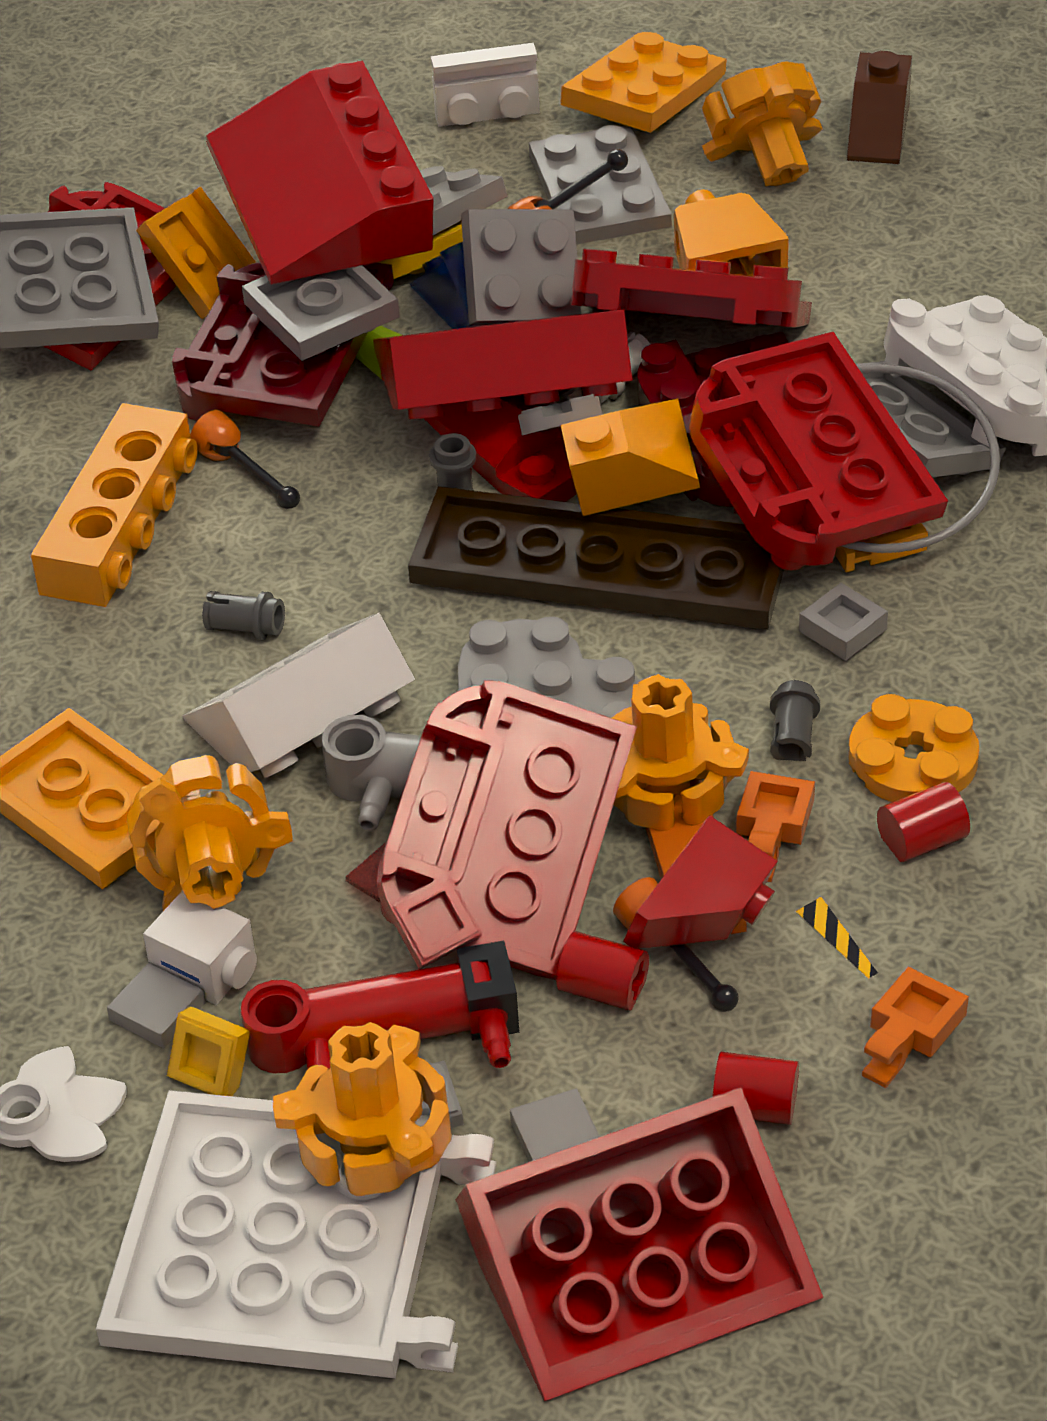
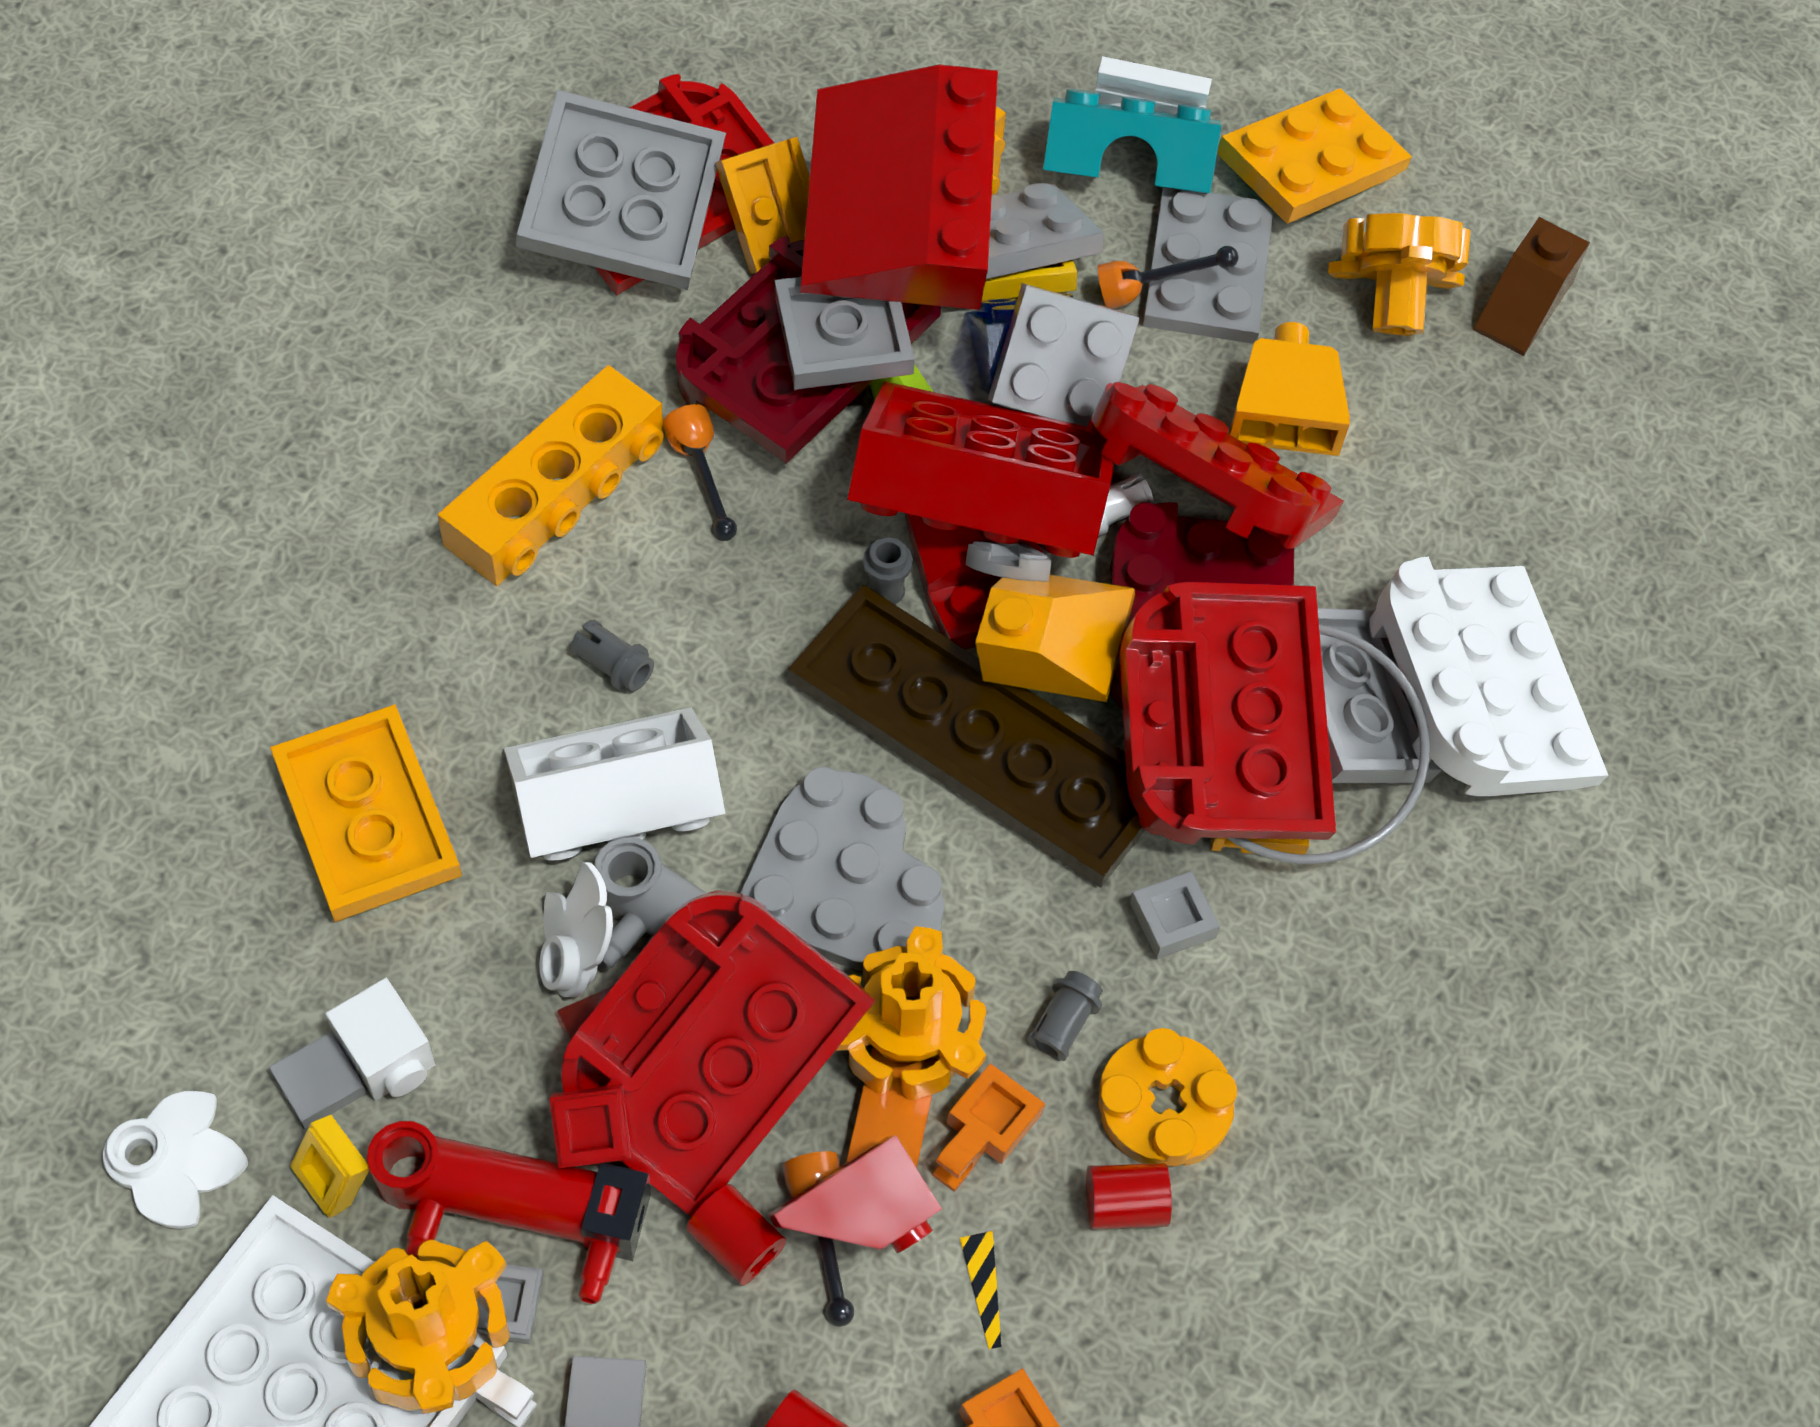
camera: 15 degrees right, 15 degrees up
(205, 839) = (427, 930): light orange piece -> none
(335, 805) = (575, 934): none -> white plate
(531, 102) = (1182, 141): none -> teal arch

